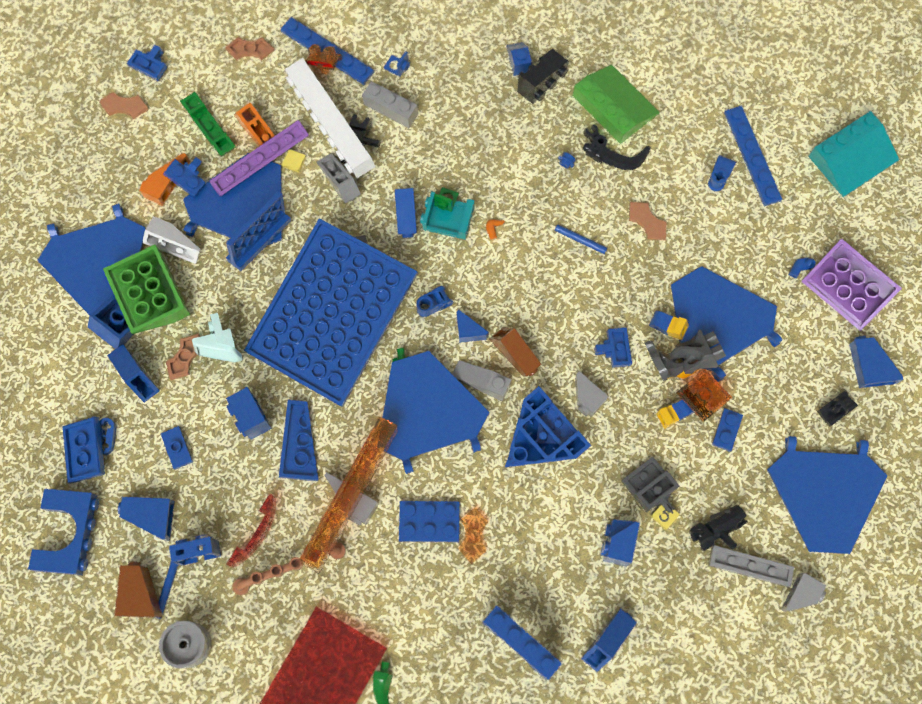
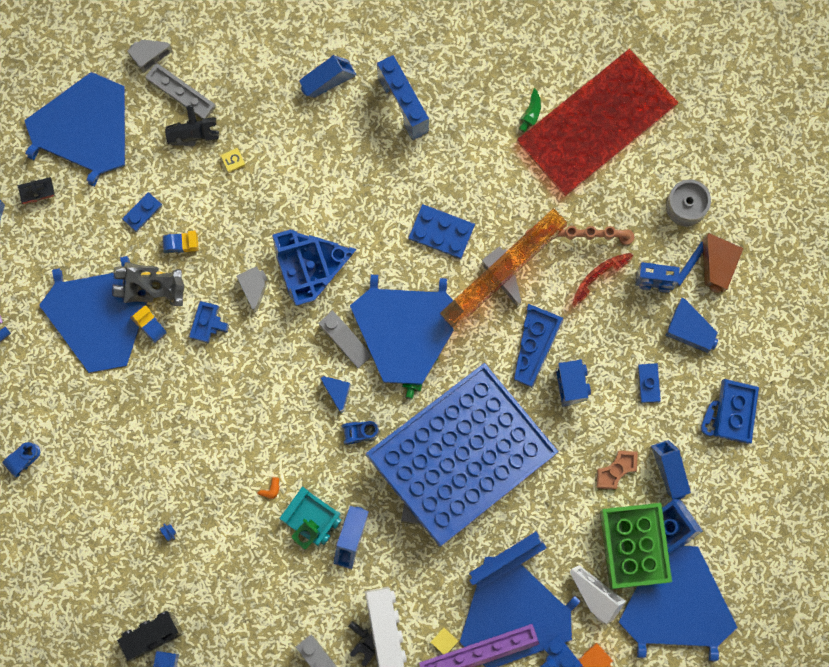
camera: 160 degrees left, 5 degrees up
(72, 558) = (752, 358): blue arch -> none
(217, 344) = (578, 460): light aqua piece -> none
(339, 178) = (405, 602): light grey slope -> none
(472, 545) = (403, 213): clear orange tile -> none
(516, 351) = (302, 354): dark orange slope -> none
(581, 239) = (191, 444): blue bar -> none
(600, 153) = (130, 526): black piece -> none
(614, 102) = (88, 578): bright green slope -> none
(620, 542) = (283, 147): blue slope -> none
(651, 485) = (233, 187): dark grey plate -> none
(653, 227) = (120, 445): nougat tile -> none
(704, 395) = (151, 243): clear orange slope -> none

